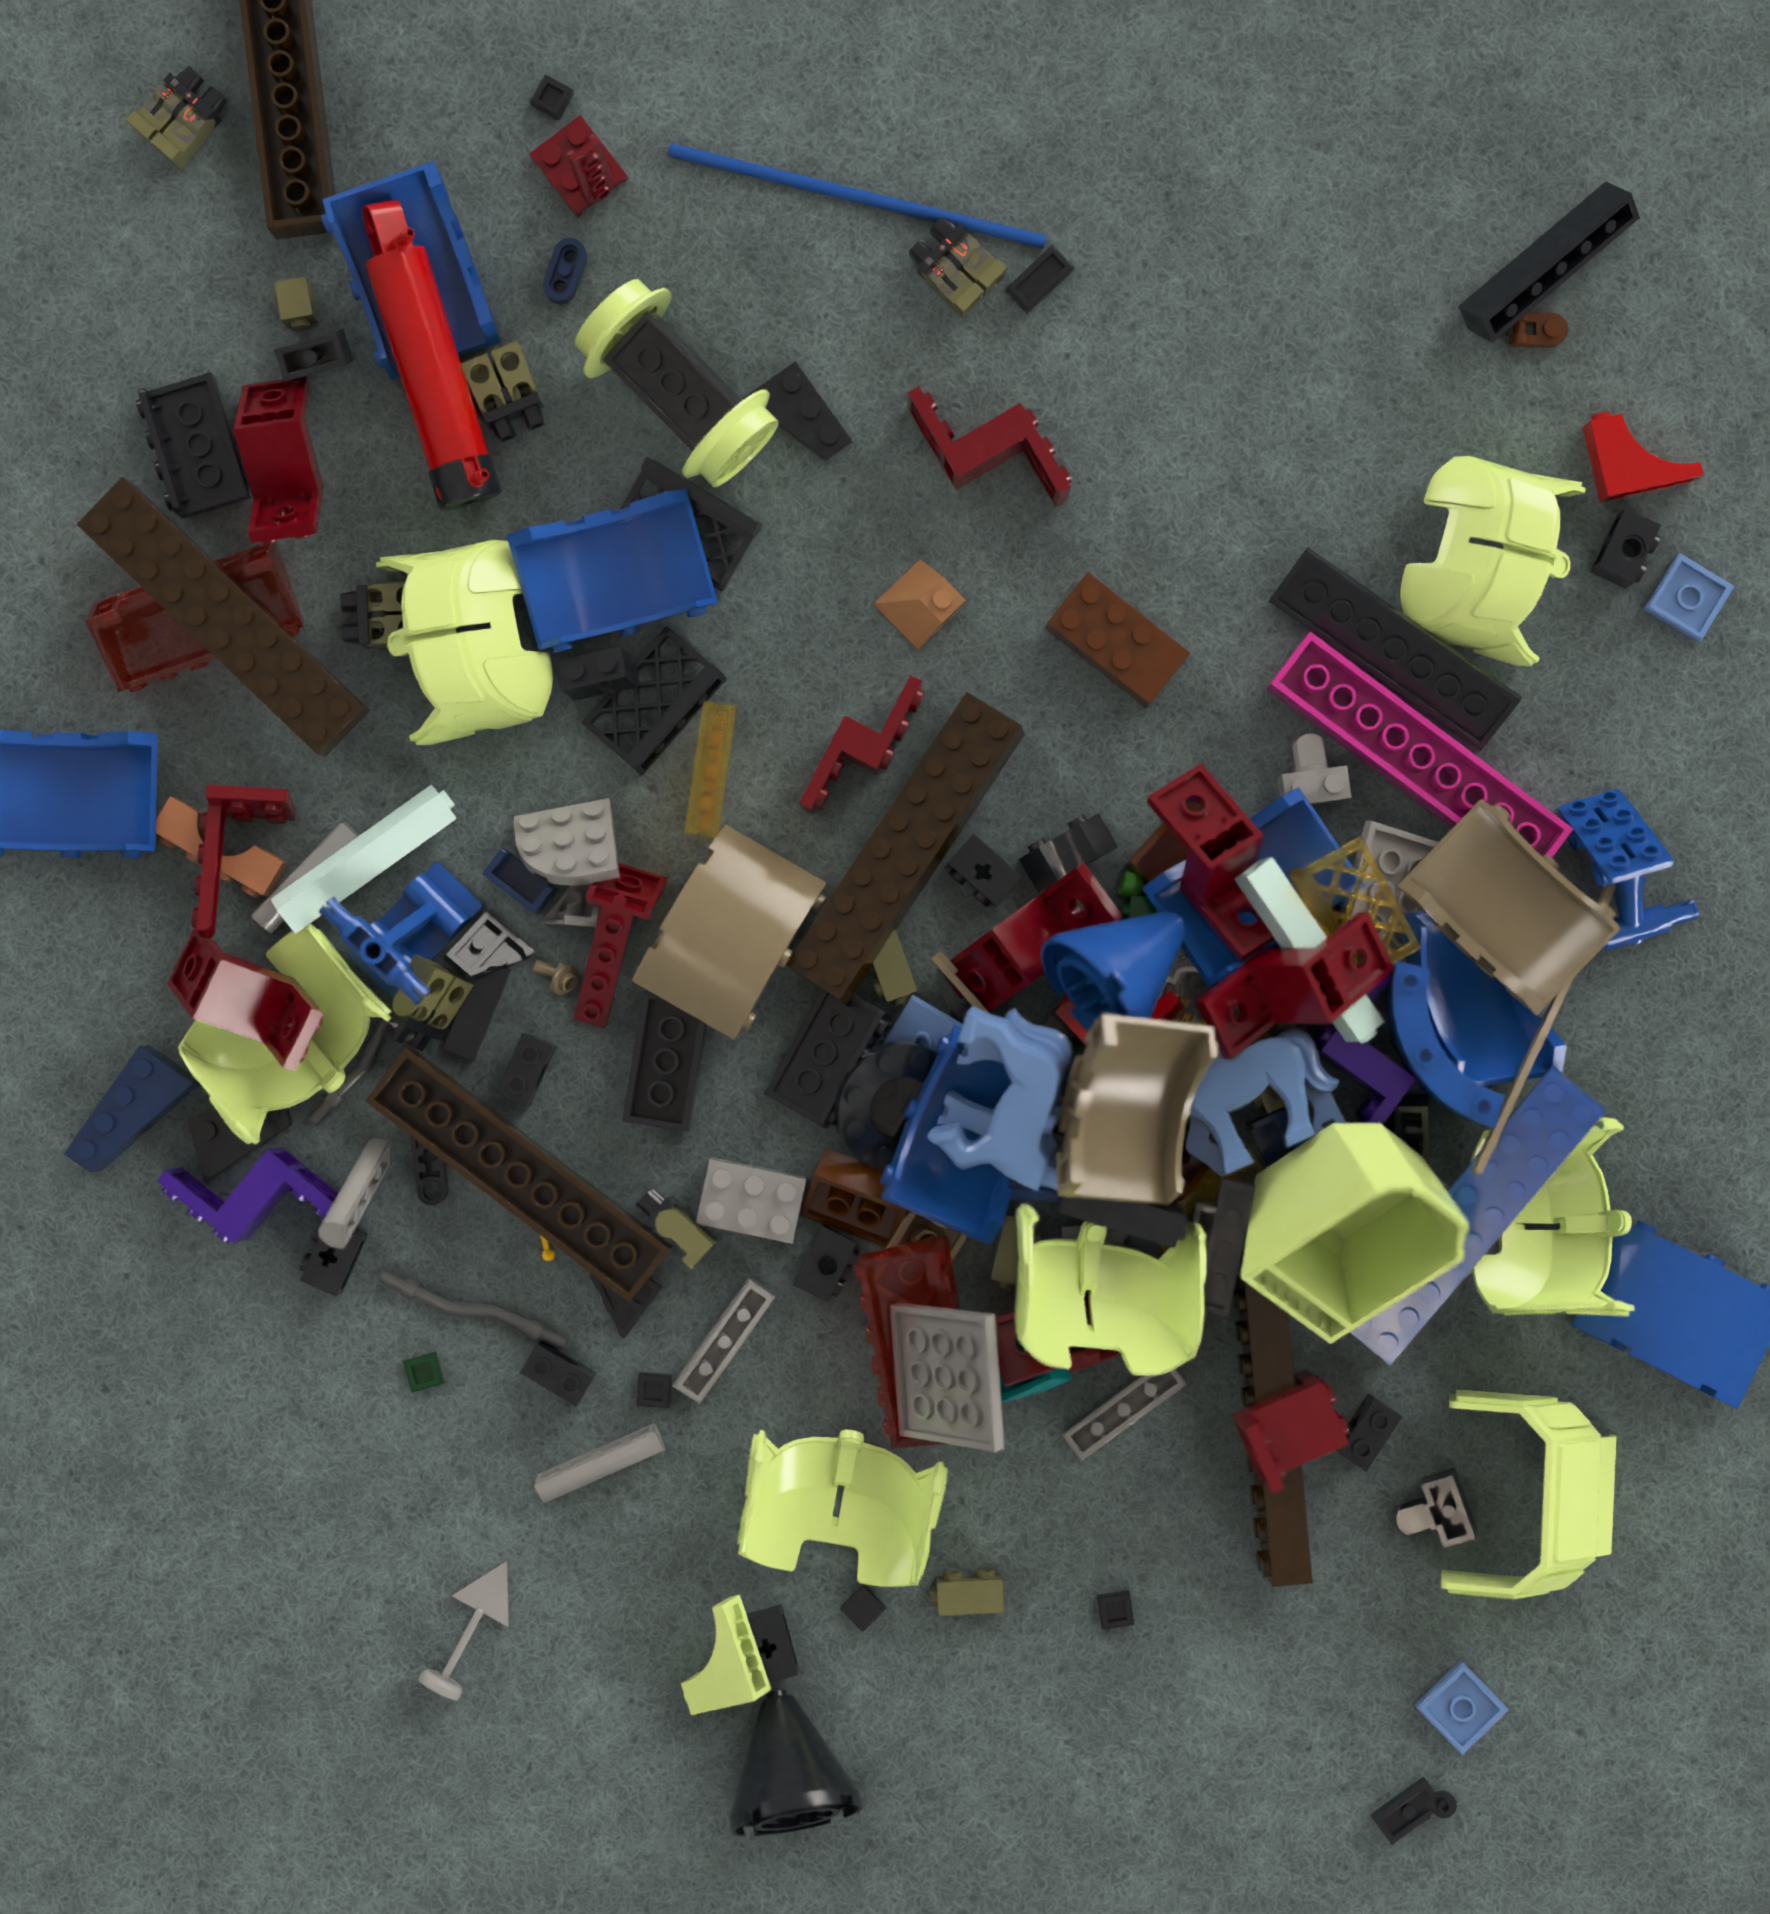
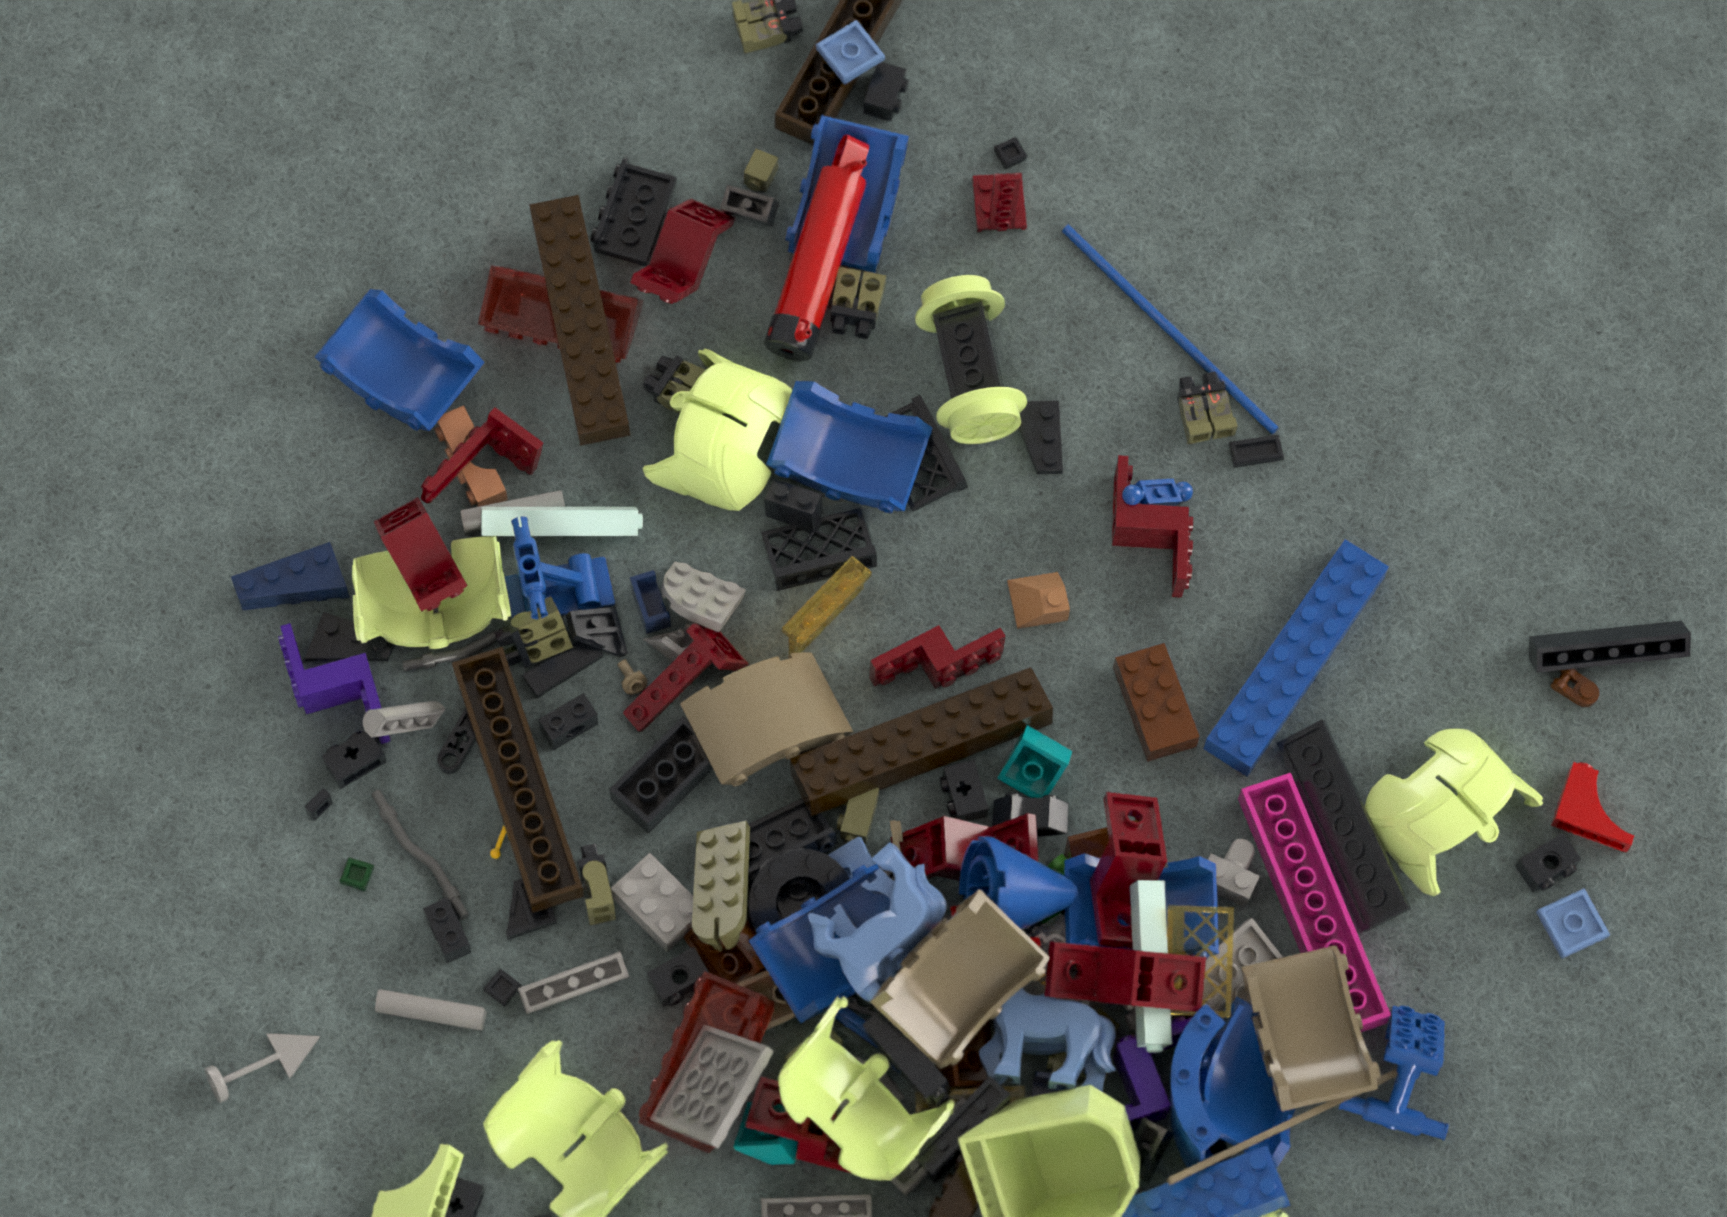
camera: 30 degrees right, 20 degrees down
(299, 97) = (850, 52): none -> medium blue plate
(333, 1328) = (318, 804): none -> black tile
(366, 114) = (885, 90): none -> black brick
(564, 272) = (943, 255): dark blue plate -> none
(806, 1147) = (721, 884): none -> olive plate
(972, 404) = (1157, 492): none -> blue plate
(1037, 793) = (1035, 764): none -> teal slope
(1231, 491) = (1295, 658): none -> blue brick

